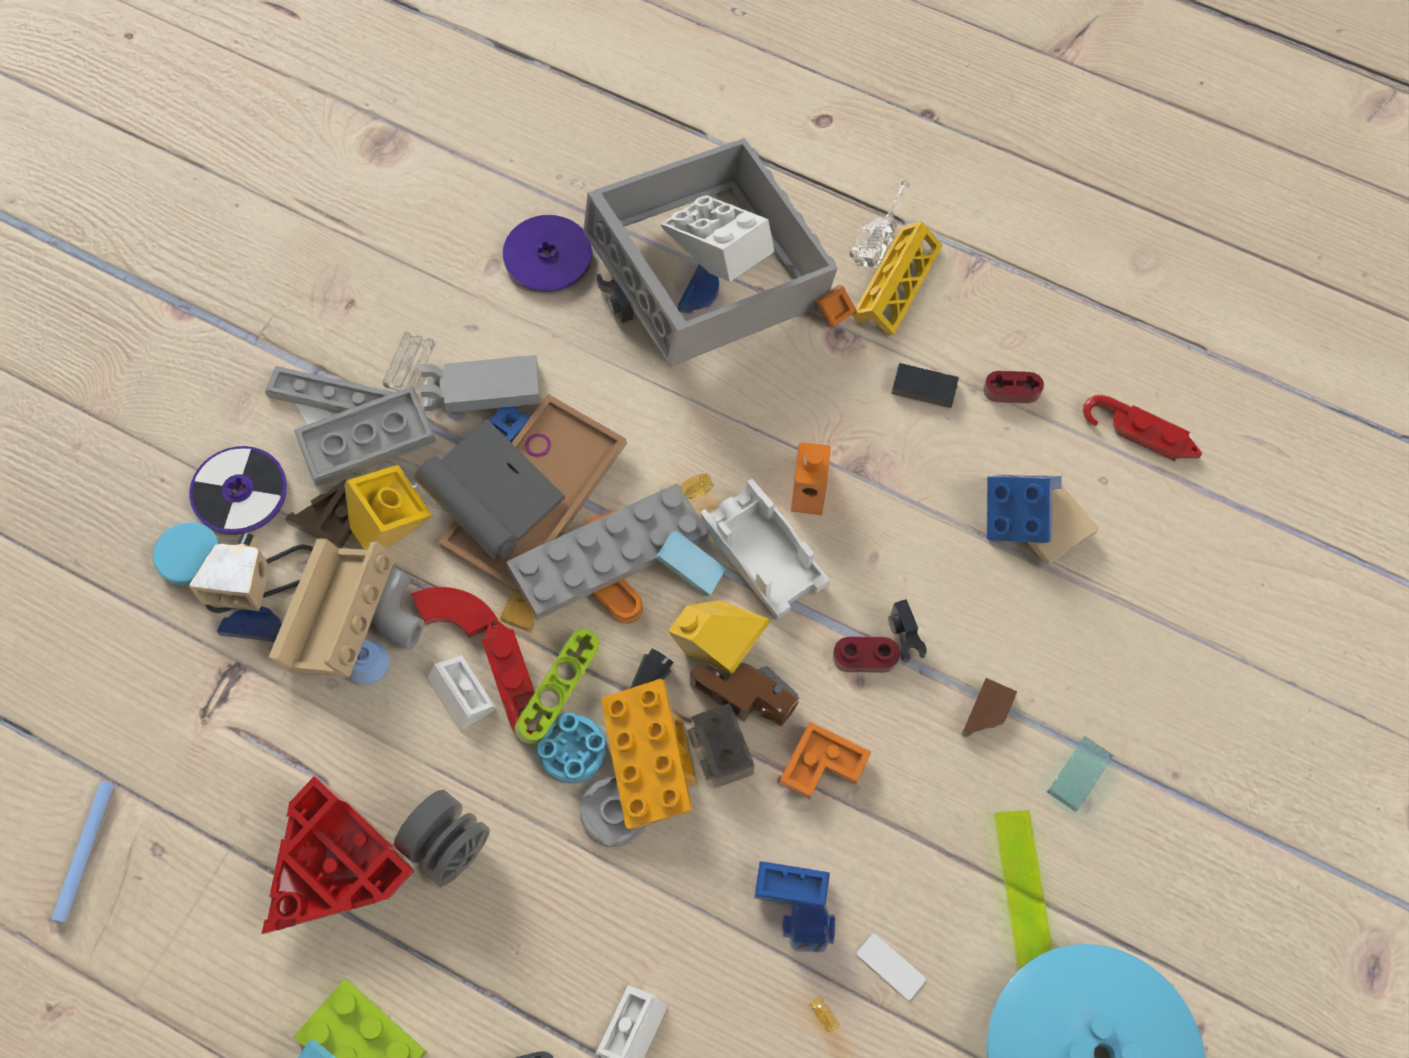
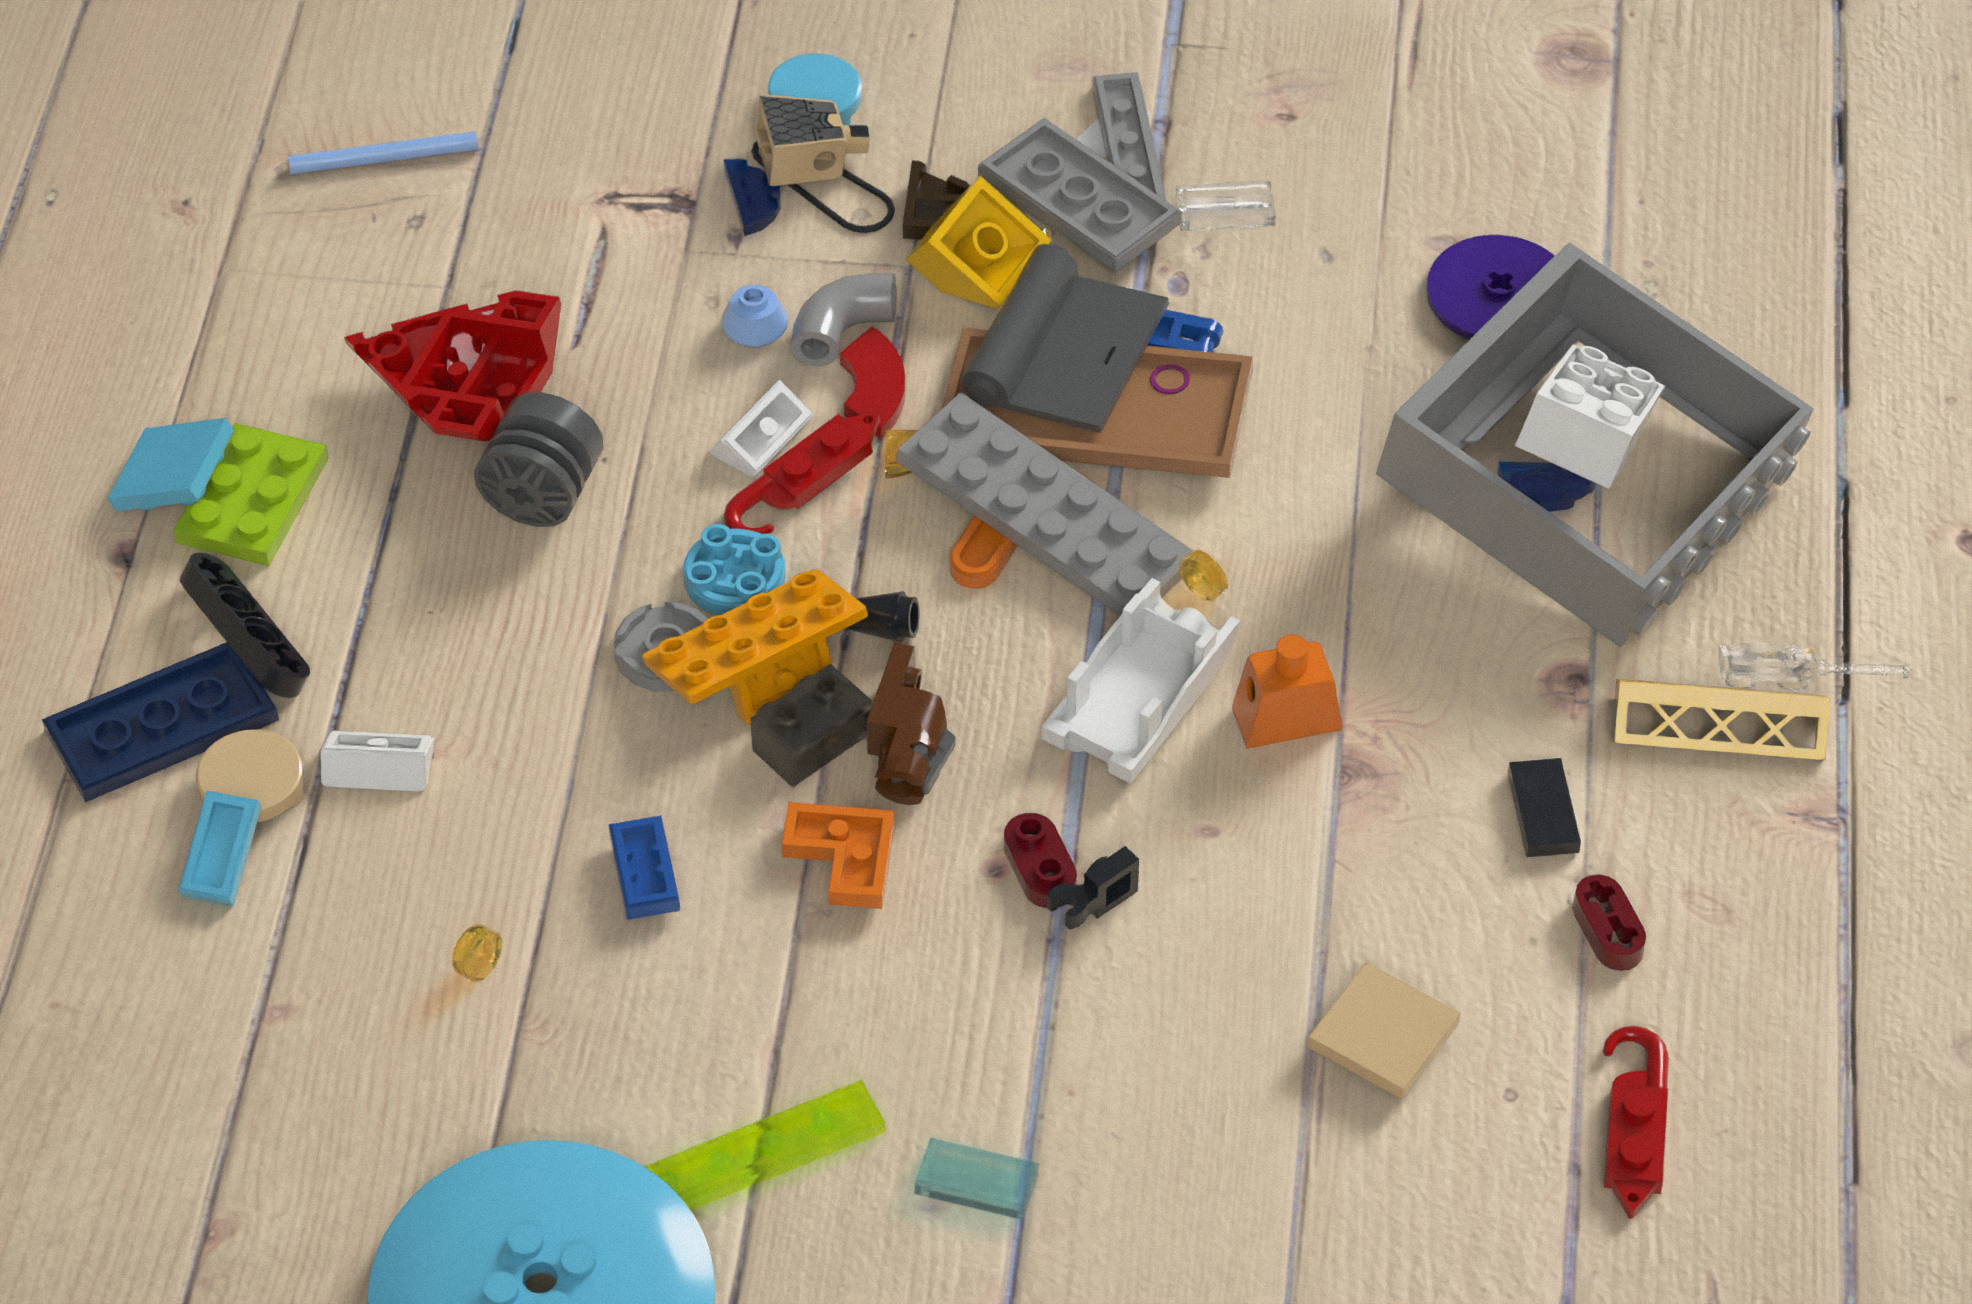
camera: 70 degrees right, 15 degrees down
(248, 510) = (965, 116): piece -> none
(332, 609) = (804, 243): tan panel -> none
(481, 384) = (1231, 286): light grey tile -> none
(557, 685) = (814, 510): lime beam -> none
(690, 563) = (1071, 602): medium azure tile -> none
(717, 633) = (976, 655): yellow slope -> none
(809, 927) = (588, 896): clear blue head -> none
(836, 305) = (1612, 646): orange tile -> none
(891, 966) = (580, 1025): white sticker -> none
(990, 707) = (1027, 1034): reddish brown tile -> none
(1020, 507) = (1378, 956): blue bracket -> none

